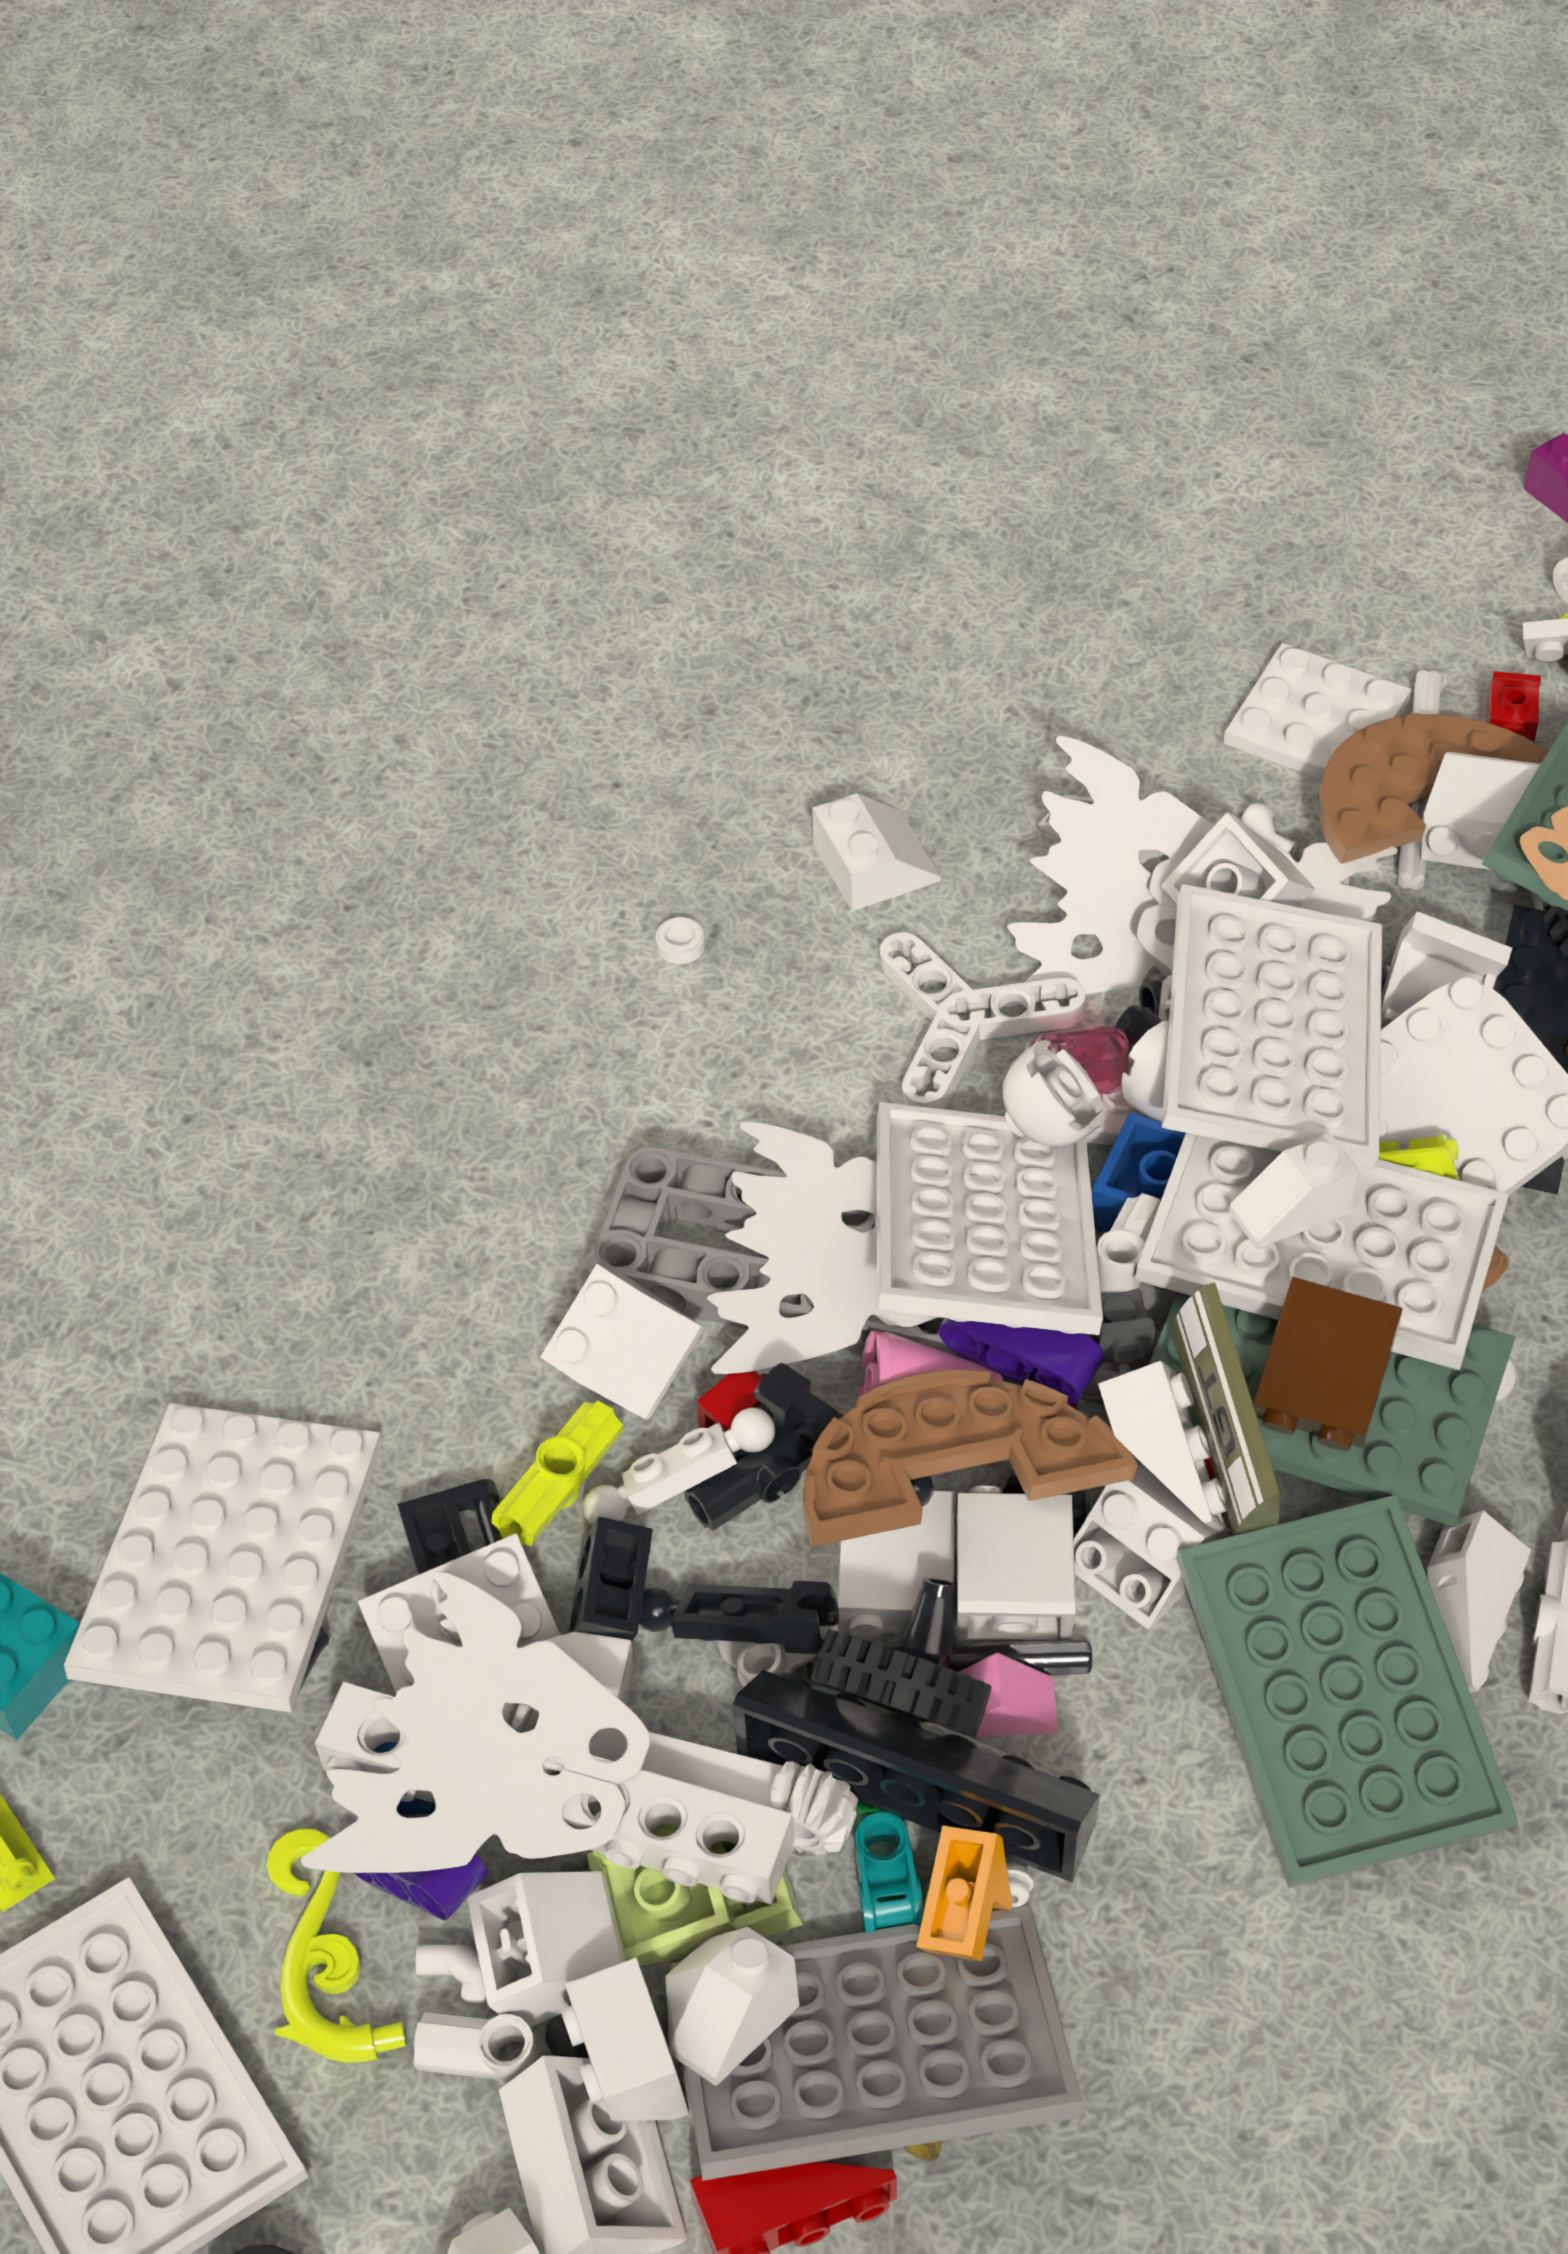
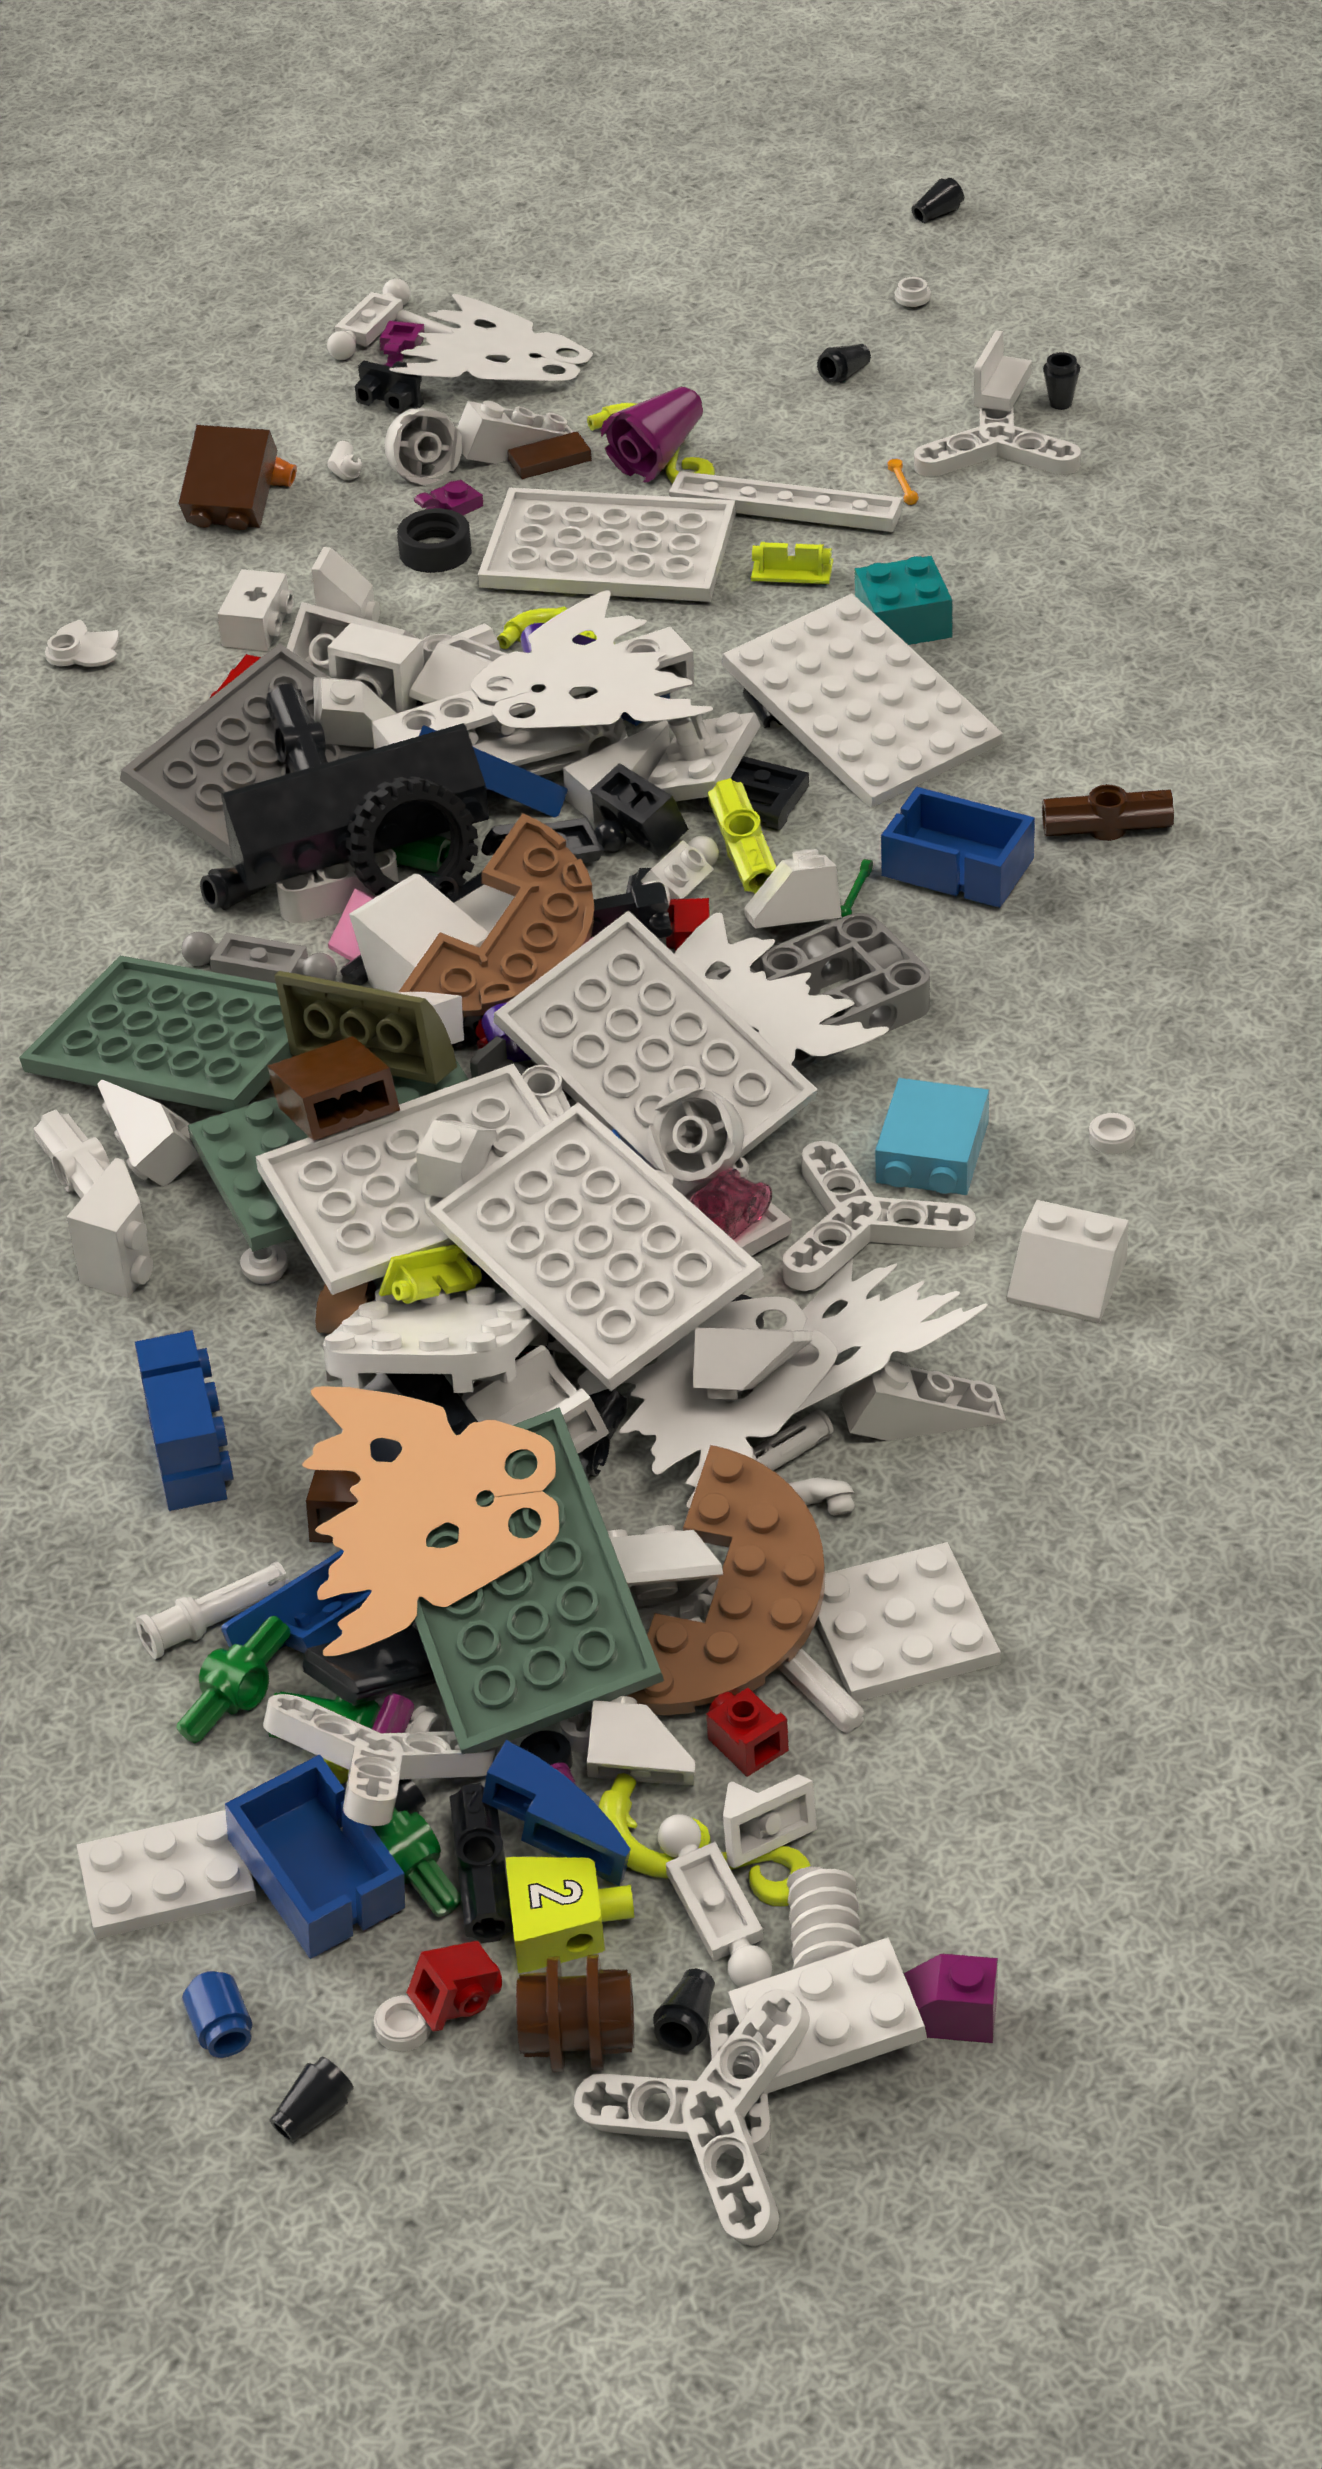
camera: 135 degrees right, 10 degrees down
(239, 1219) = (1107, 812): none -> reddish brown piece
(410, 1276) = (957, 846): none -> blue piece
(492, 1365) = (865, 870): none -> green hinge
(707, 1743) = (518, 783): none -> blue sticker
(823, 1029) = (932, 1136): none -> medium azure brick
(835, 1986) = (297, 737): none -> black piece
(1089, 1899) = (224, 888): none -> black cone
(1154, 1756) = (255, 957): none -> light grey plate

